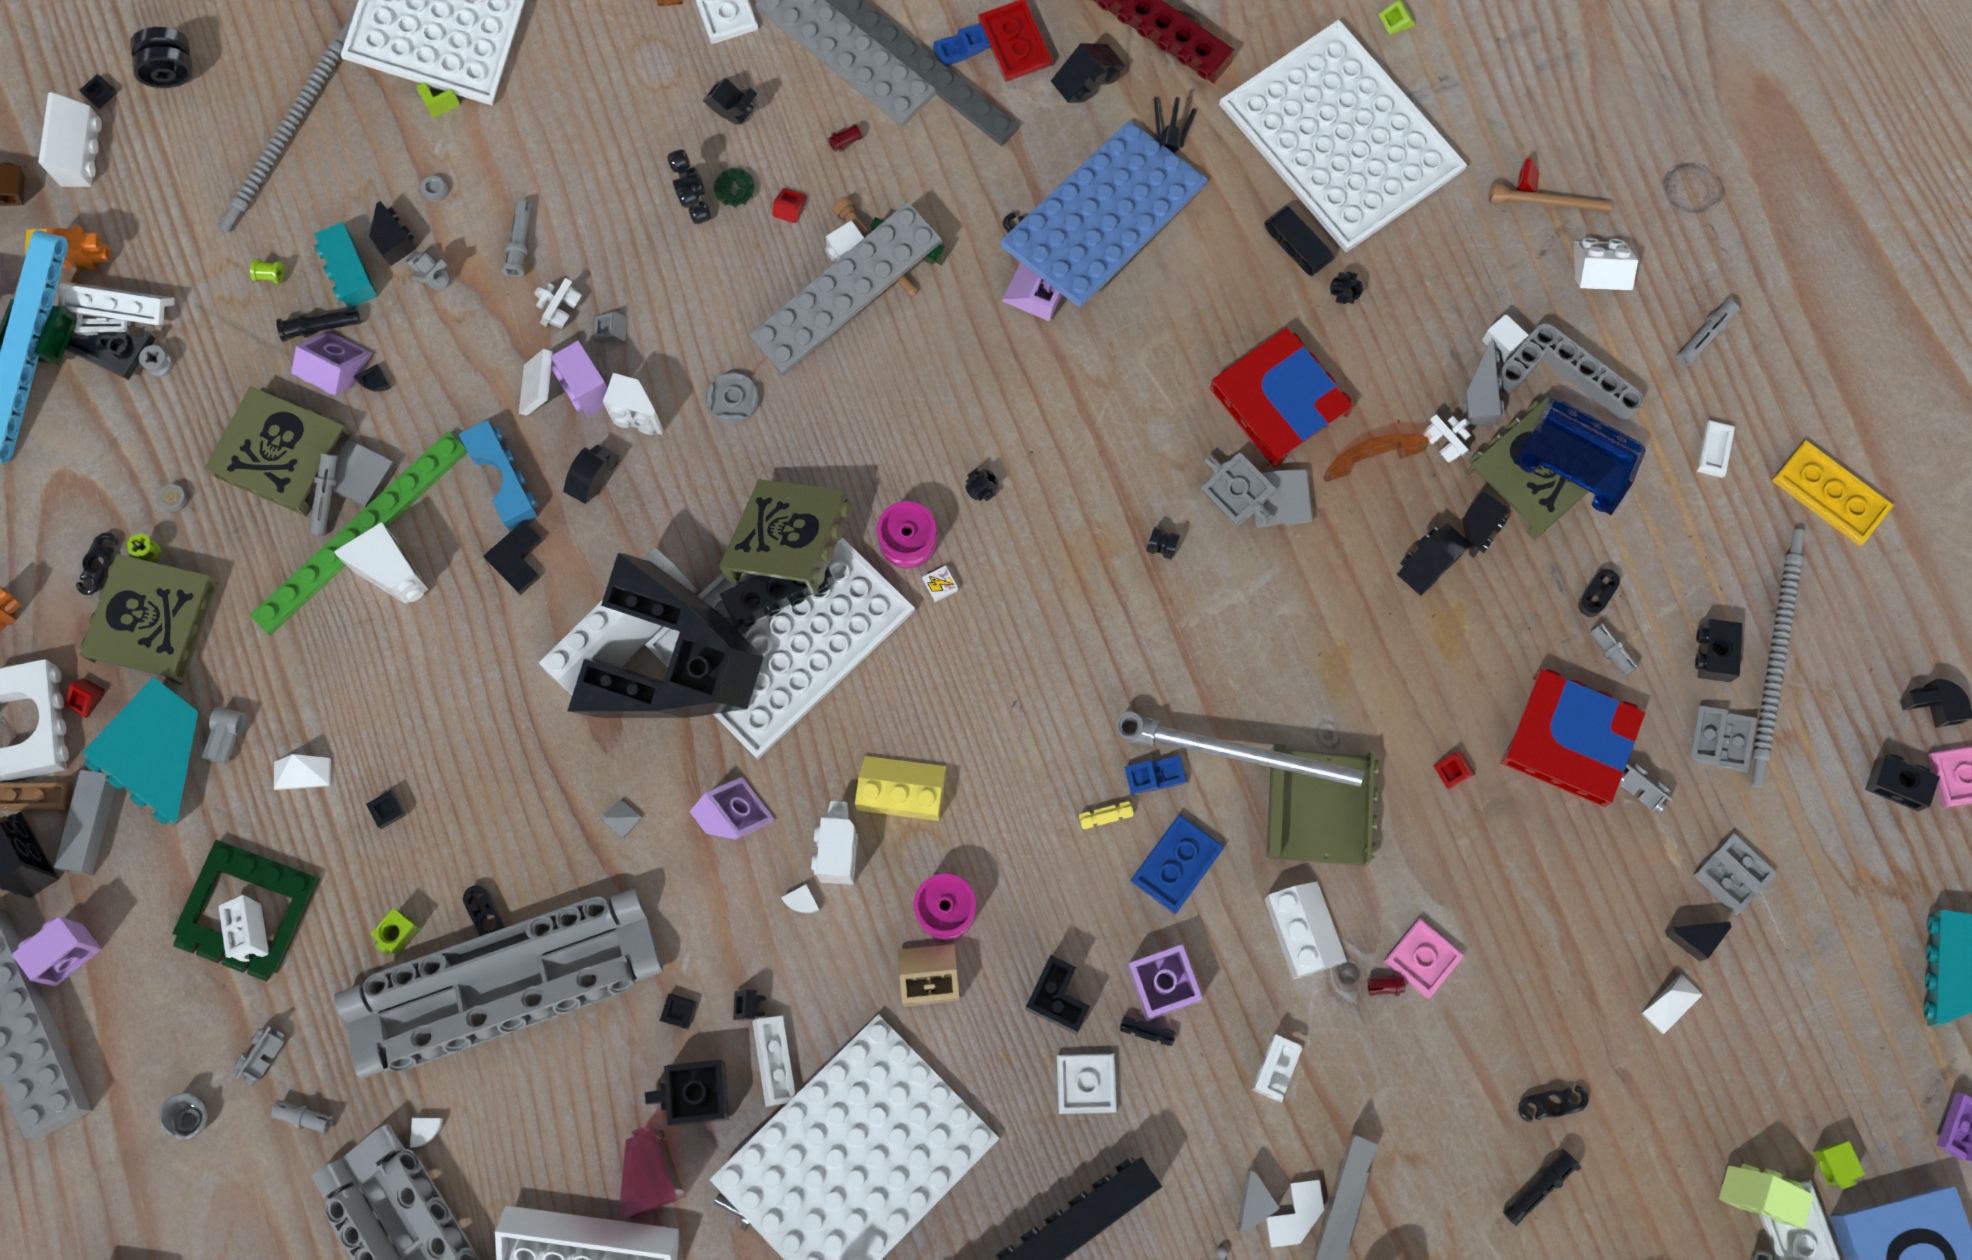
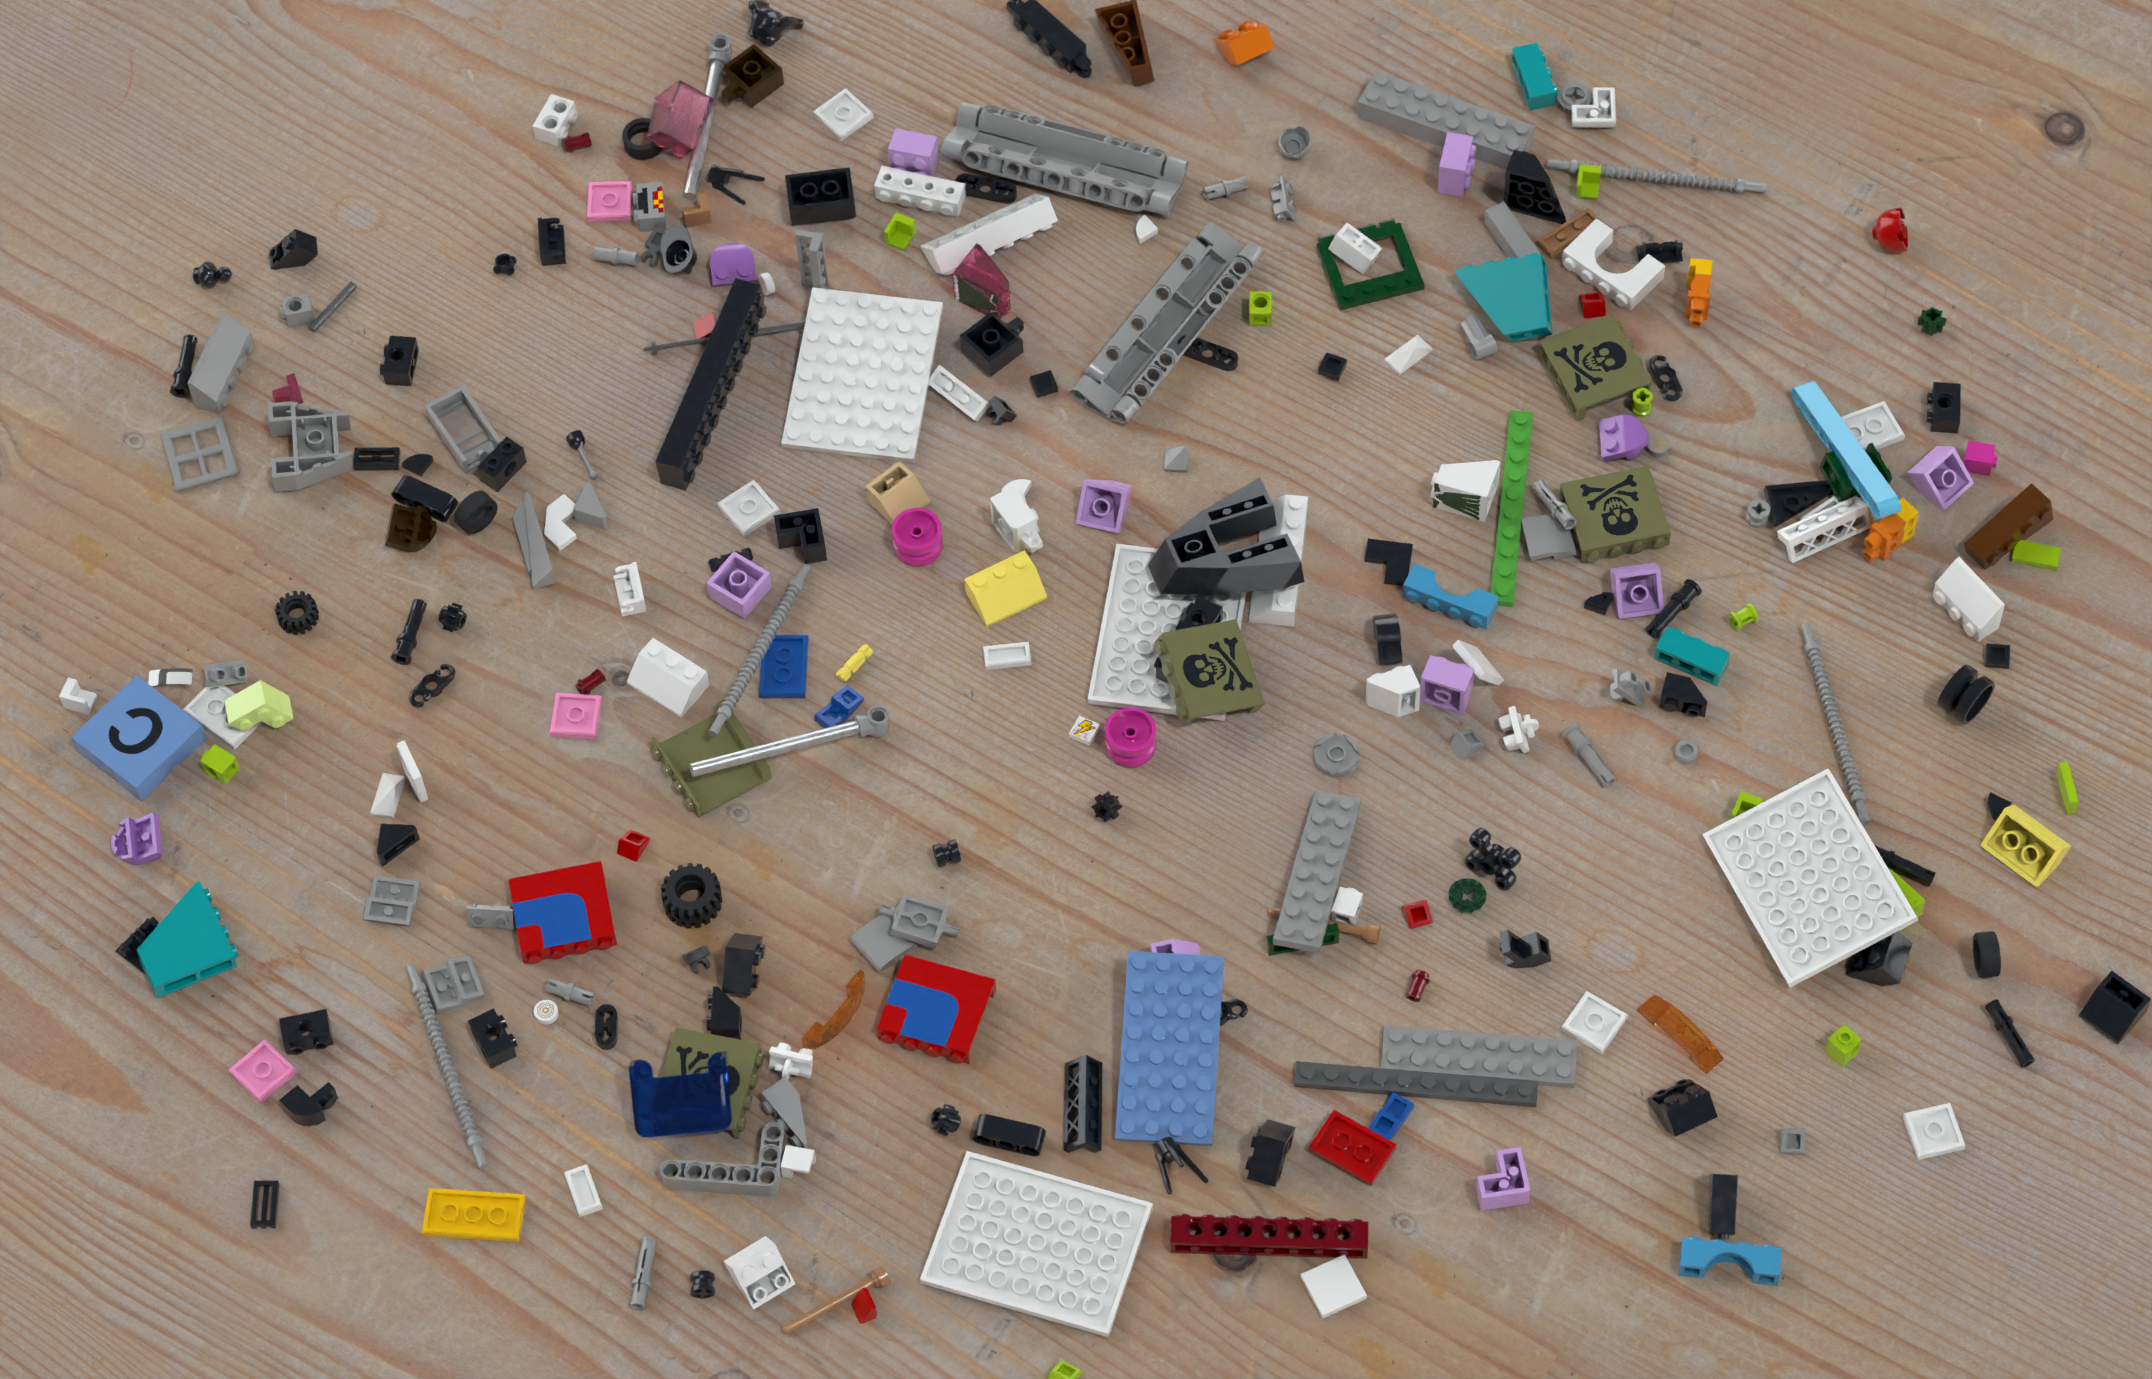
camera: 145 degrees right, 15 degrees down
(196, 526) = (1622, 437): none -> medium lavender slope
(951, 717) = (1007, 655): none -> white tile
(1105, 947) = (760, 648): none -> light grey hose
(1207, 221) = (1087, 1102): none -> black fence
(1452, 648) = (689, 879): none -> black tyre
(1470, 602) = (695, 956): none -> black tile
(1487, 1169) = (452, 617): none -> black gear
(1642, 997) = (412, 771): none -> white tile
(1648, 648) = (546, 1012): none -> white tile
(1662, 285) = (702, 1284): none -> black wheel

